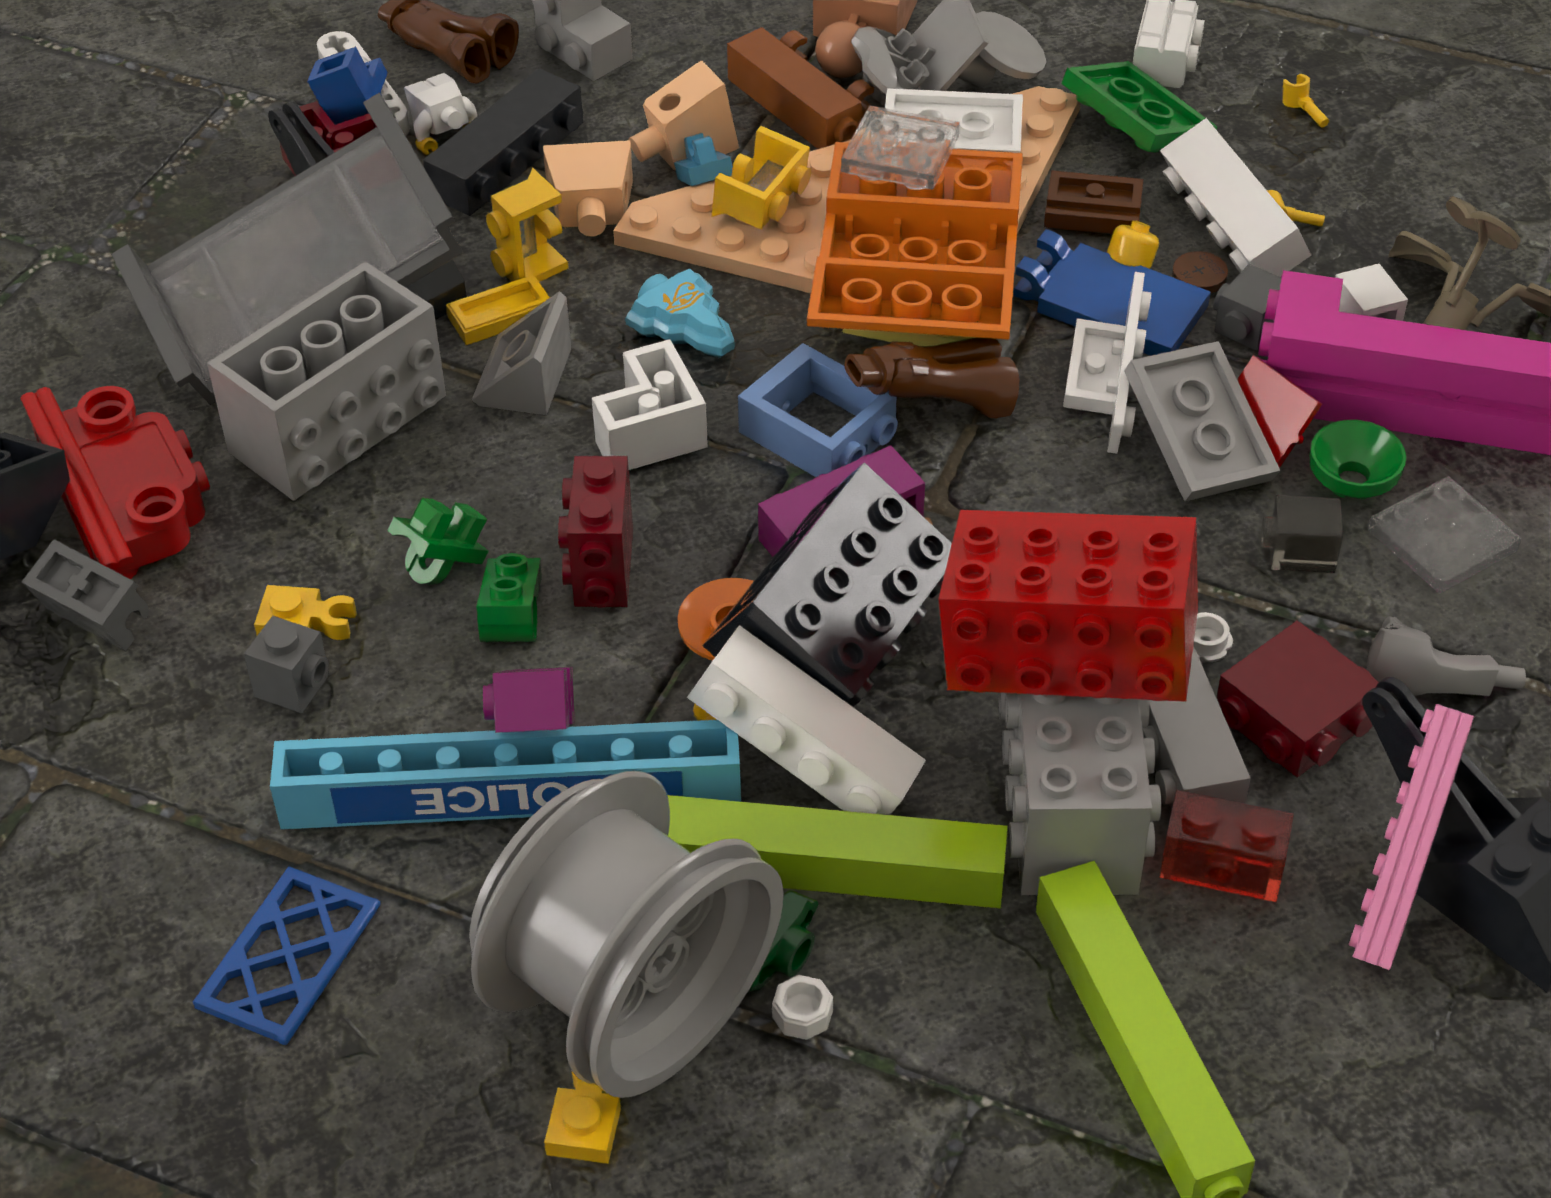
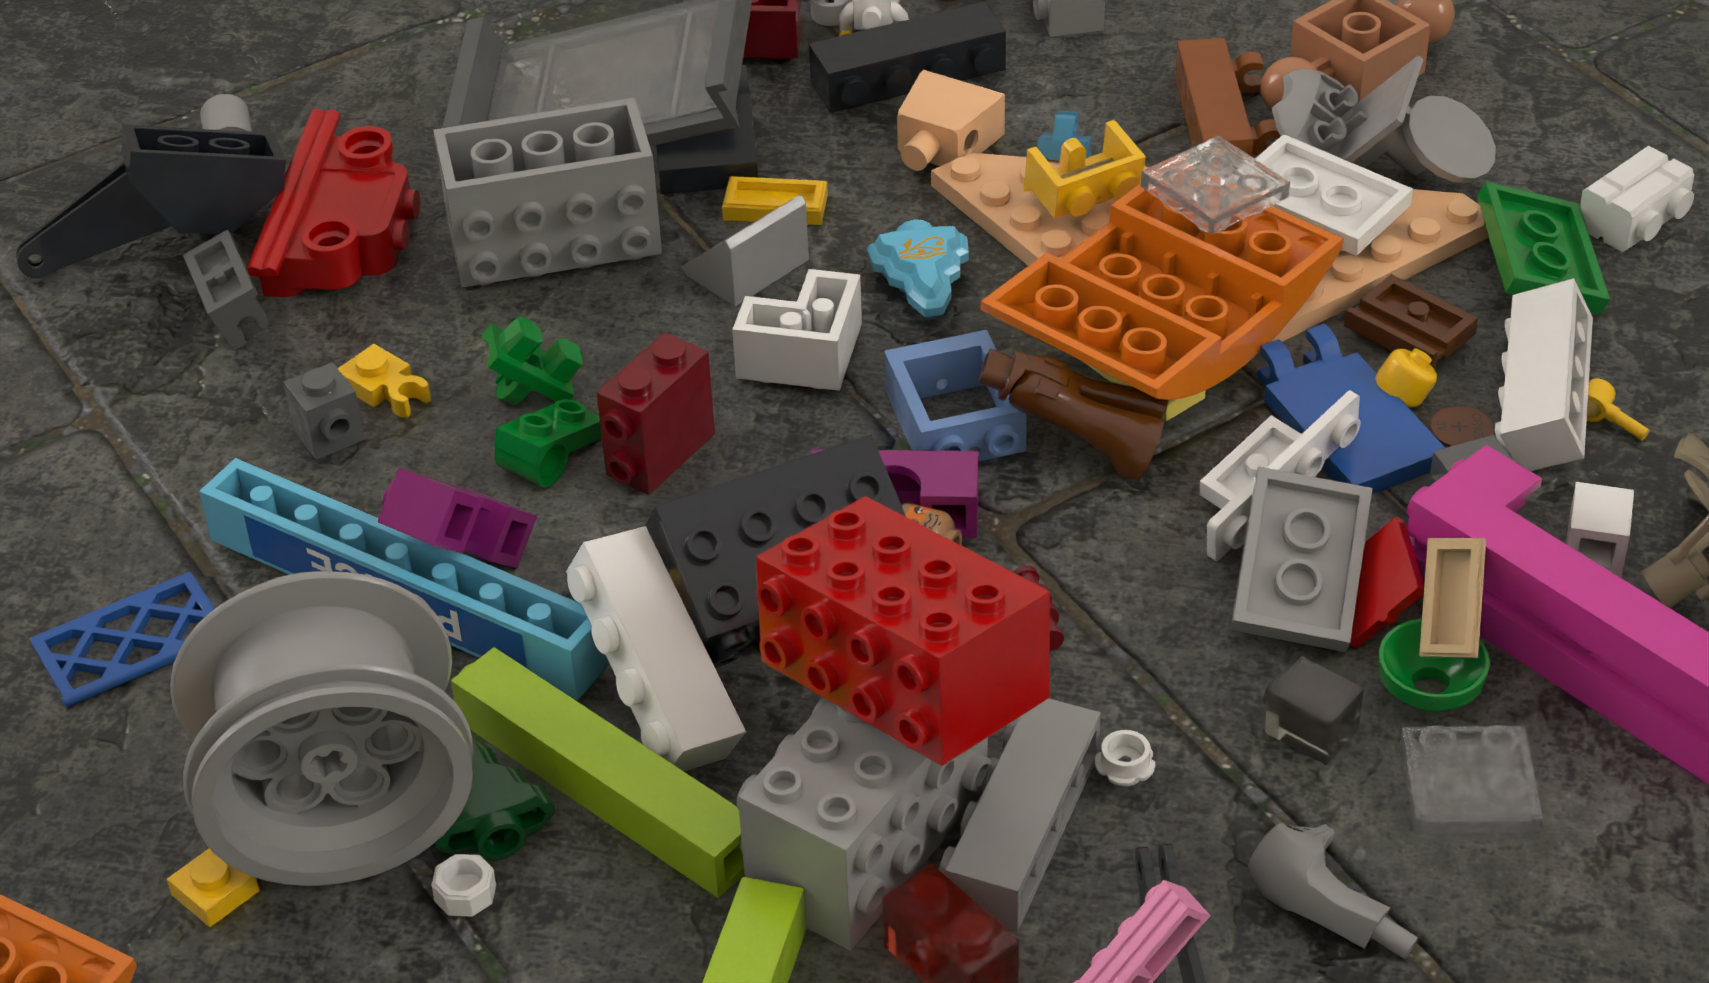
camera: 35 degrees right, 5 degrees down
(522, 227) = (838, 137): yellow window -> none
(682, 108) = (1075, 82): light nougat torso -> none
(1296, 698) = (1125, 815): dark red brick -> none
(1351, 399) = (1452, 597): none -> tan tile

